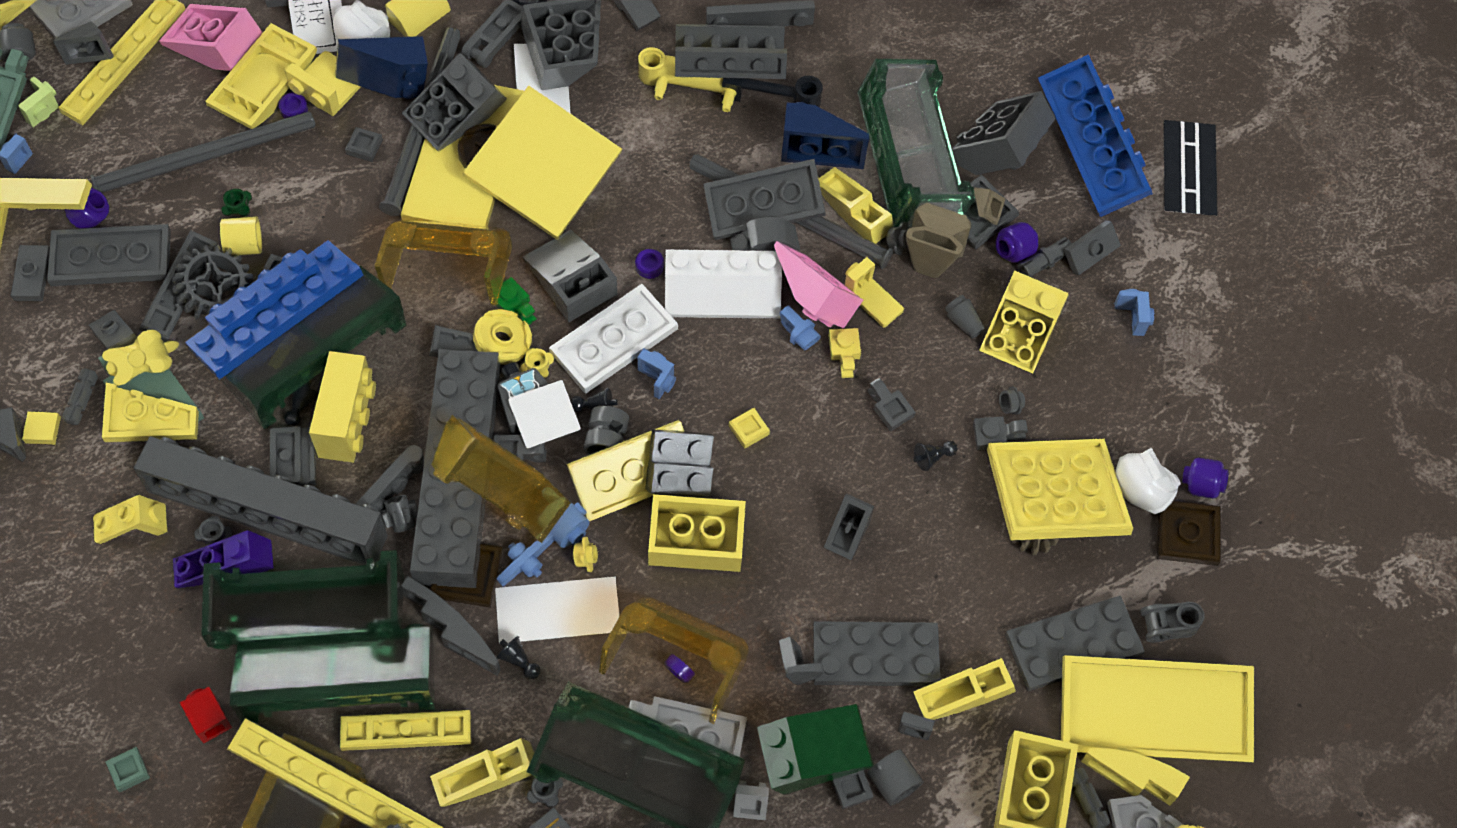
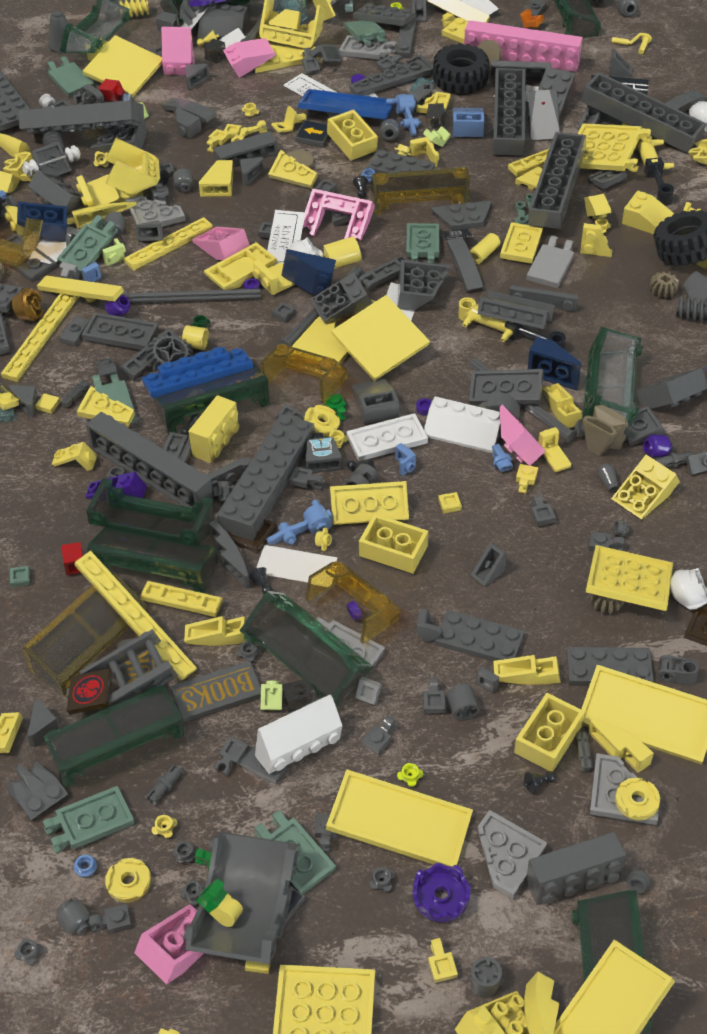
camera: 25 degrees right, 15 degrees down
(144, 355) = (117, 377): light yellow animal -> none
(498, 477) = (283, 478): clear yellow windscreen -> none
(544, 414) = (328, 460): white sticker -> none
(680, 464) = (398, 502): plate -> none
(814, 748) = (416, 670): dark green slope -> none
(928, 455) = (555, 542): black piece -> none
(989, 204) = (644, 419): dark tan slope -> none

